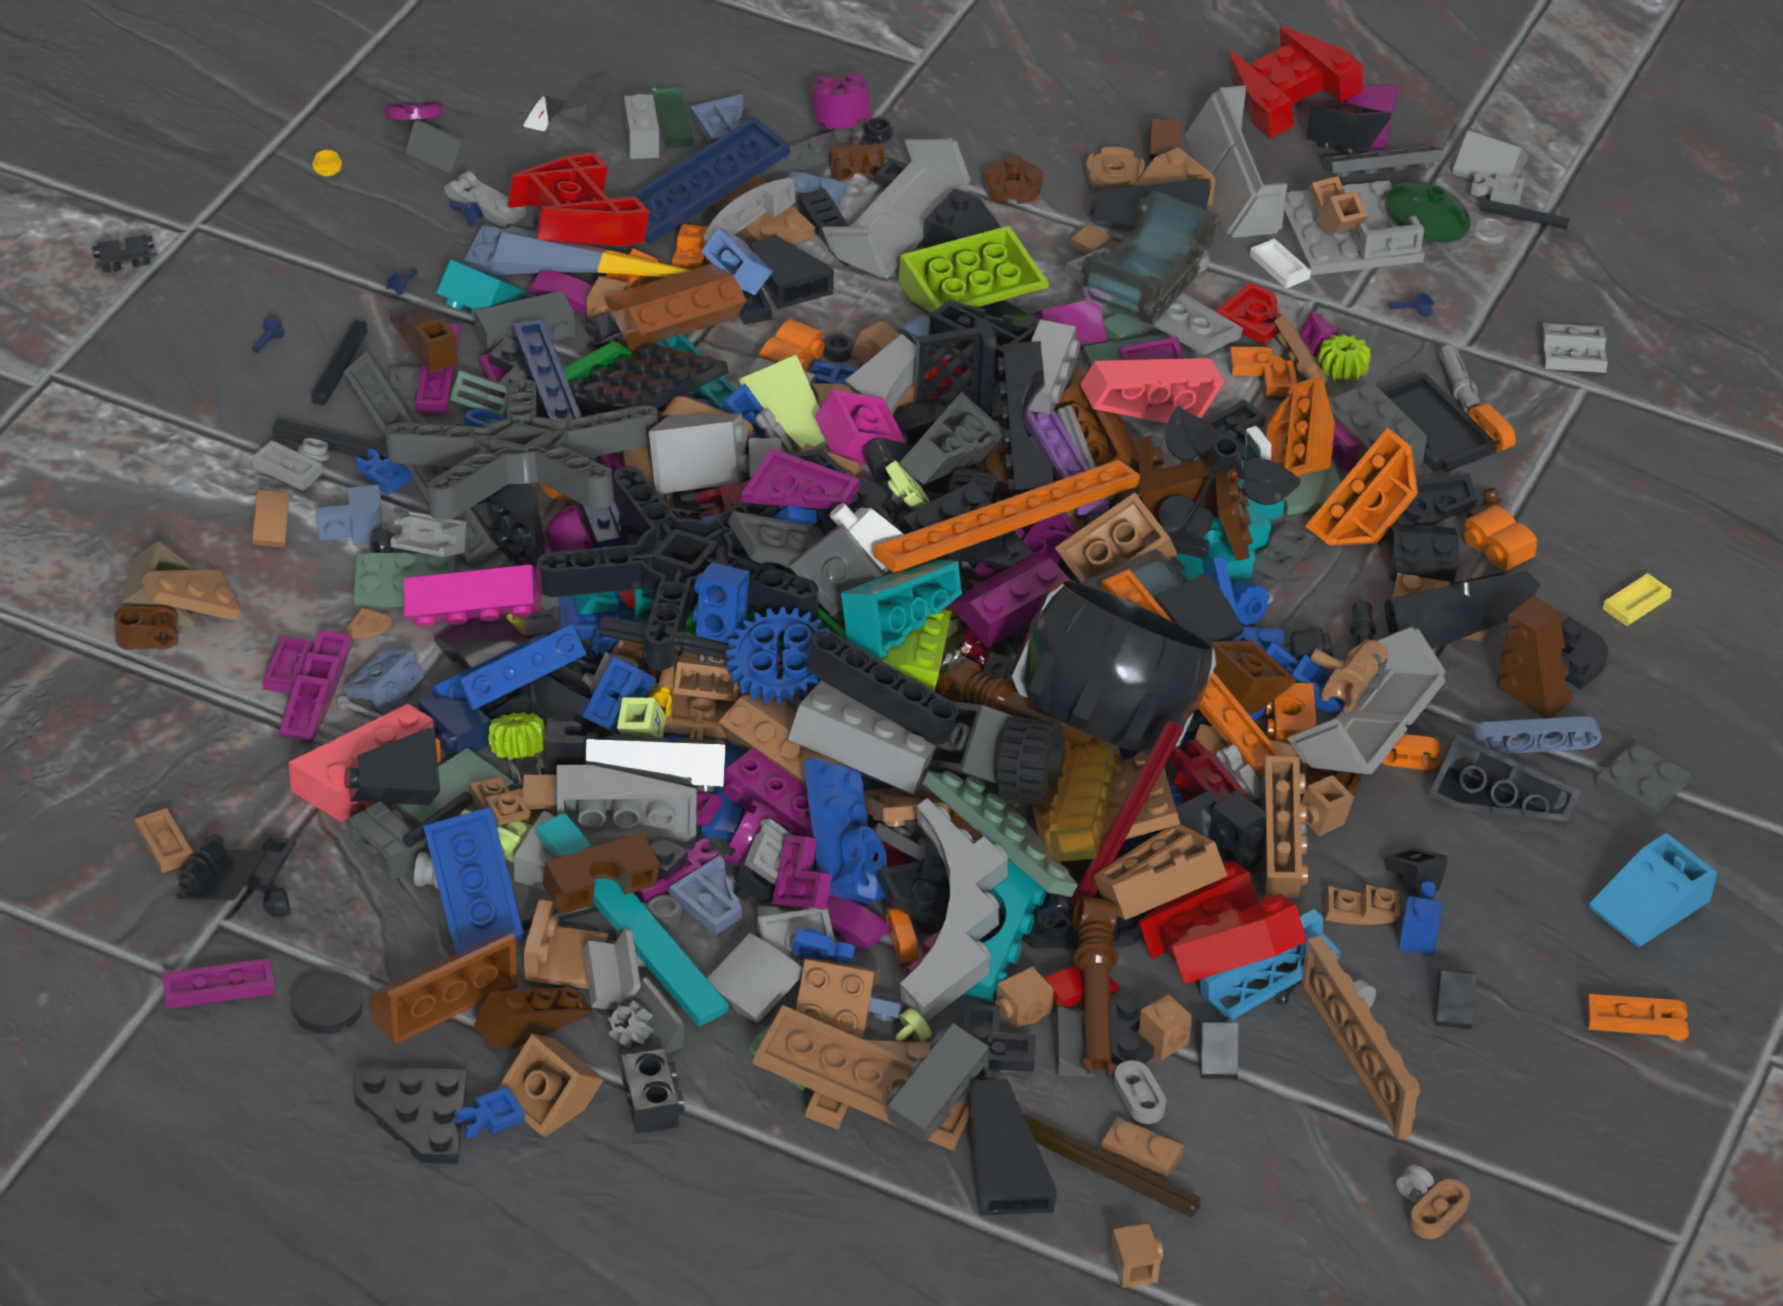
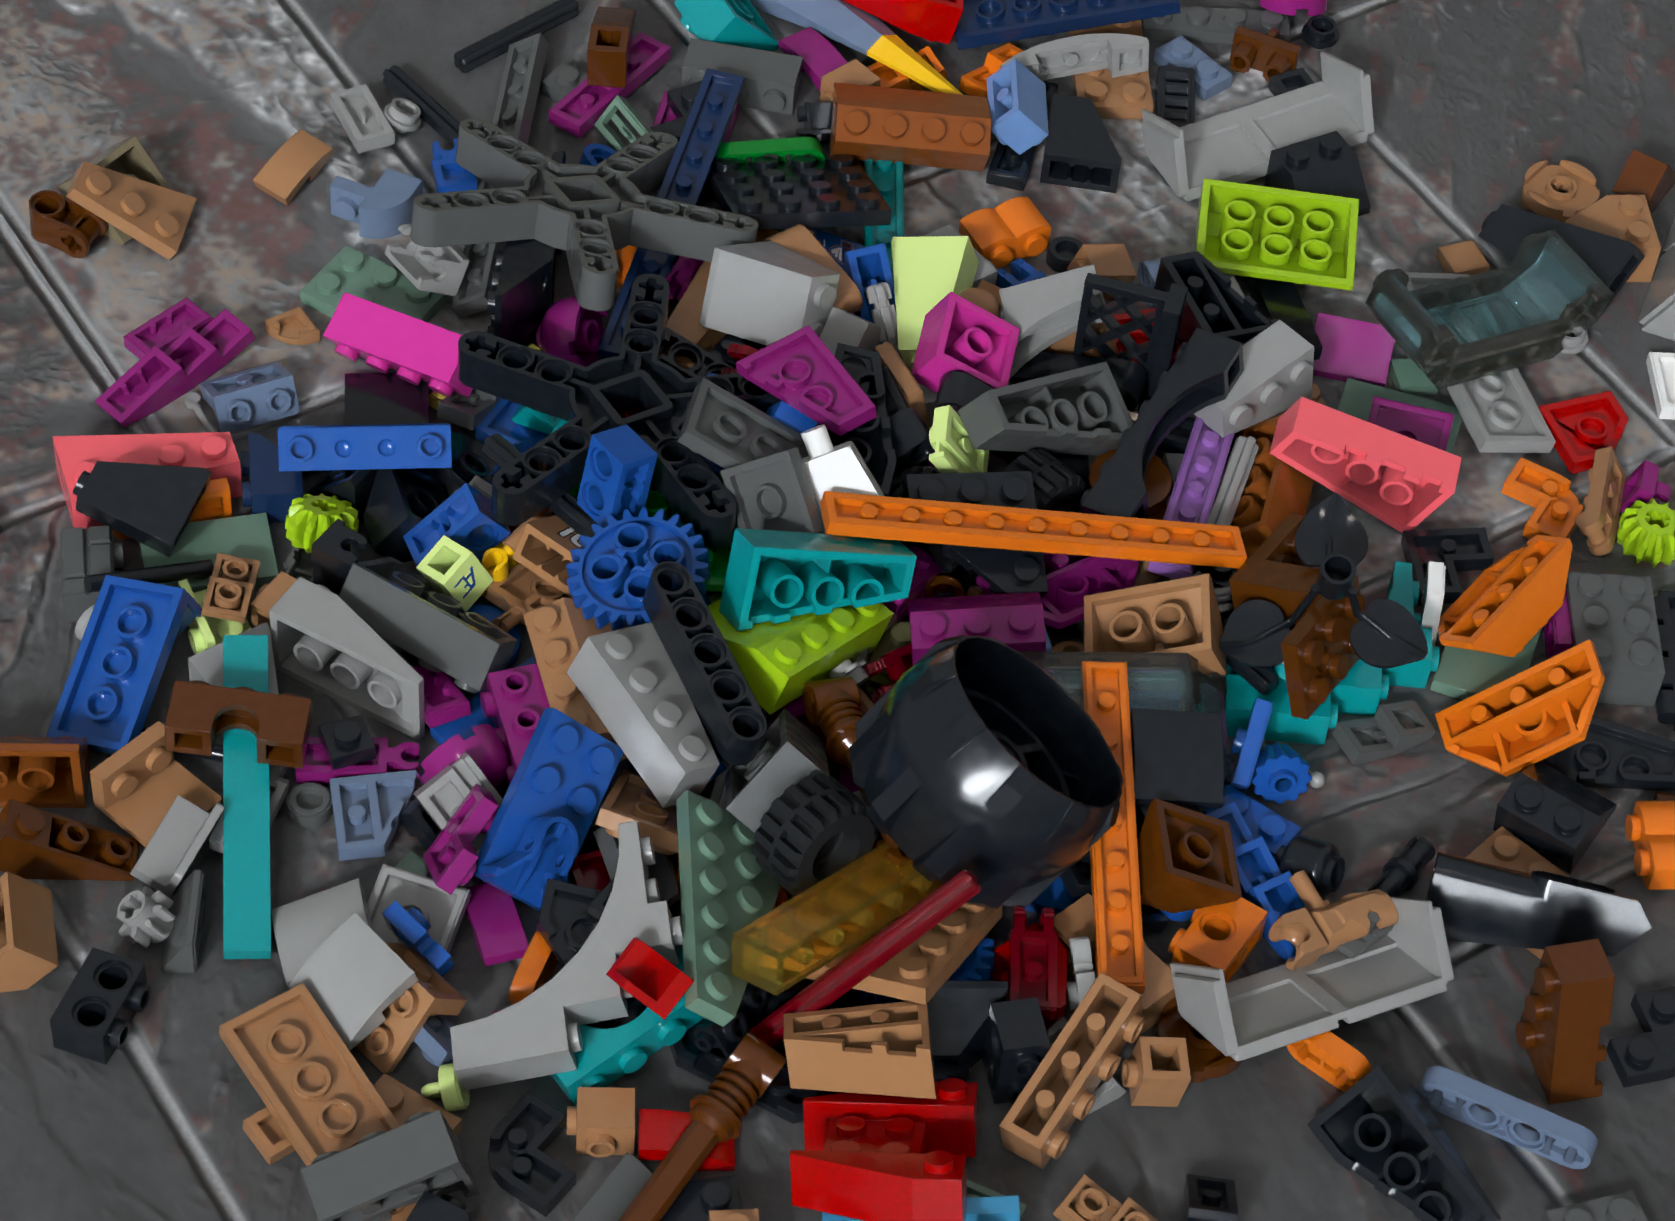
camera: 30 degrees right, 5 degrees up
(381, 542) = (378, 243): black hinge -> none
(812, 984) = (354, 979): none -> light grey slope
(1012, 888) = (649, 977): none -> red panel
(1013, 180) = (1412, 151): reddish brown plate -> none

